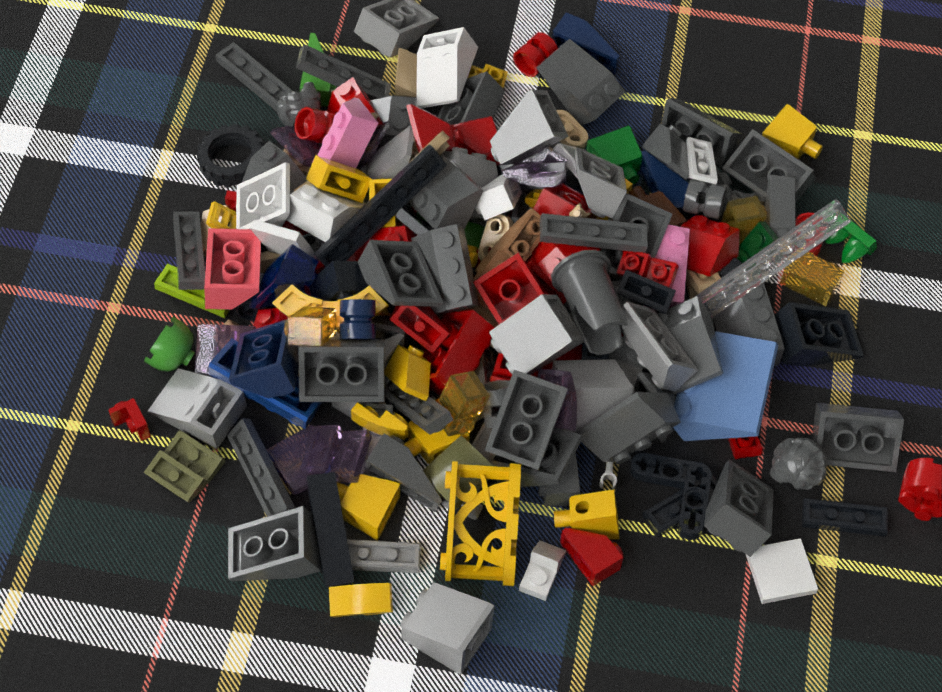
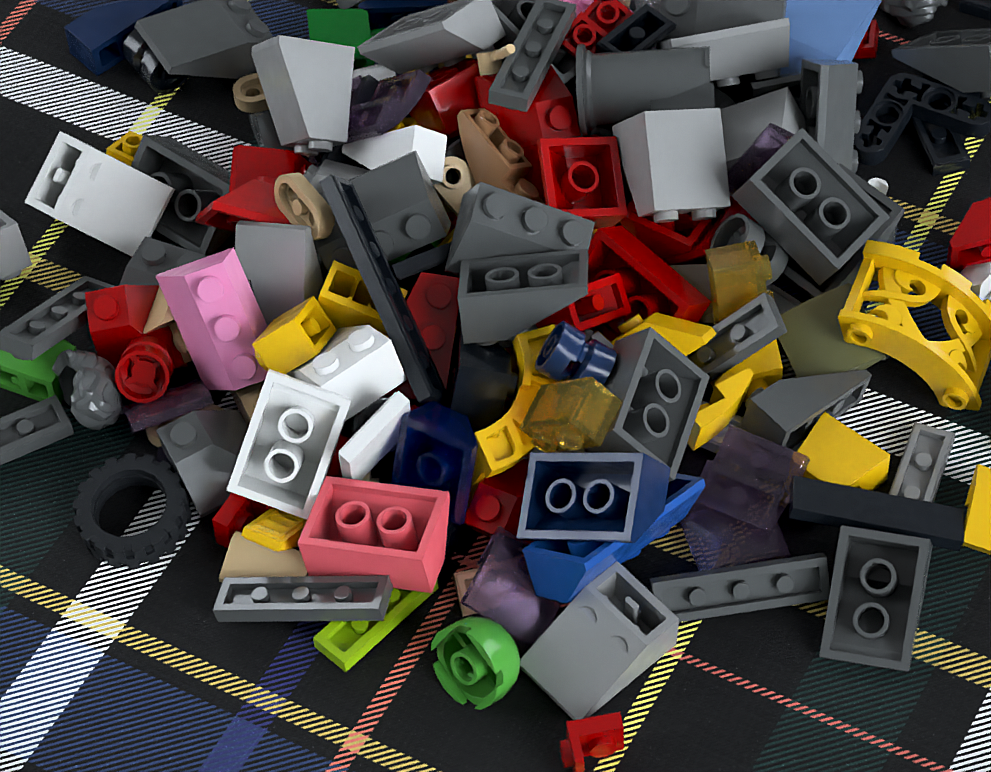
camera: 65 degrees left, 5 degrees down
(184, 466) = (694, 692): olive slope -> none
(406, 74) = (70, 254): tan slope -> none
(534, 53) = (118, 86): red wheel -> none
(591, 513) = (934, 220): yellow torso -> none

